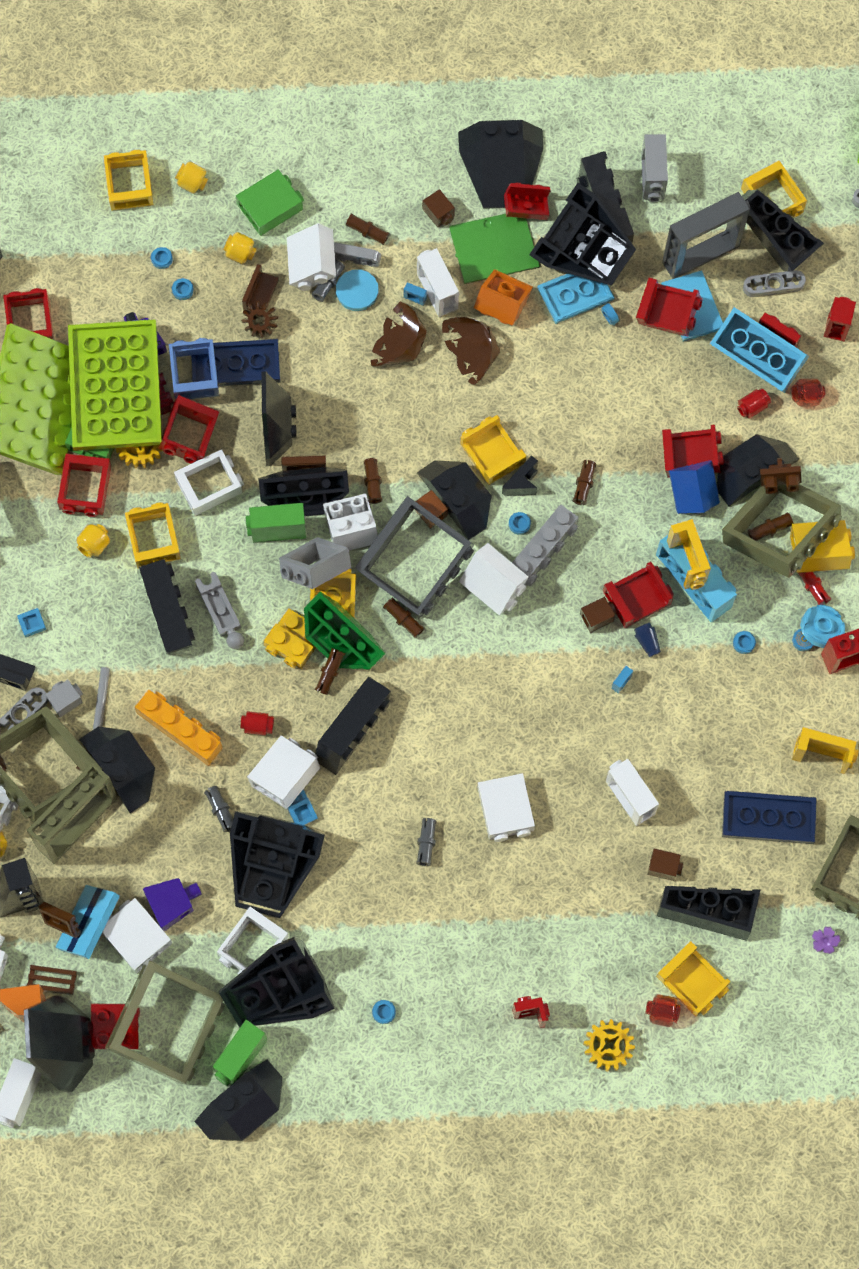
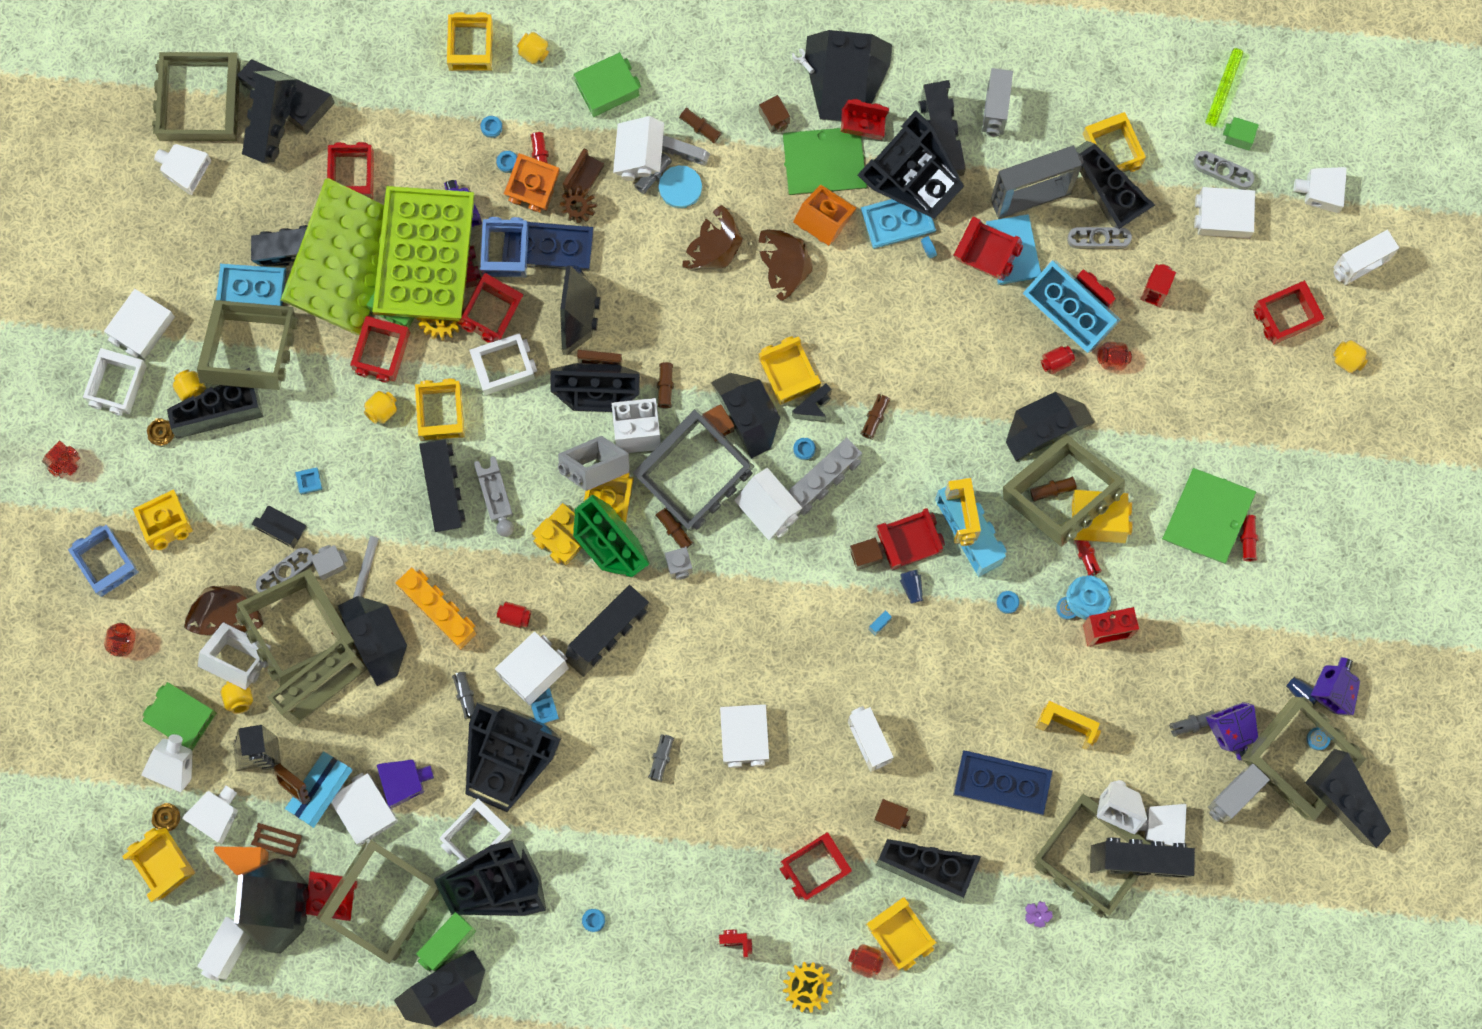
camera: 10 degrees right, 5 degrees up
(210, 305) = (531, 183): none -> orange plate
(214, 277) = (538, 145): none -> red pin
(239, 248) = (569, 127): yellow head -> none
(276, 523) = (562, 416): bright green brick -> none
(329, 671) = (592, 573): reddish brown pin -> none
(414, 649) = (679, 563): none -> light grey brick
(415, 293) = (737, 199): dark azure tile -> none
(438, 282) = (760, 191): white window -> none
(458, 155) = (803, 61): none -> white hand
(613, 909) = (834, 853): none -> red window
(692, 448) = (987, 401): red panel -> none
(694, 488) = (984, 438): blue slope -> none
(781, 475) = (1070, 439): reddish brown hips -> none

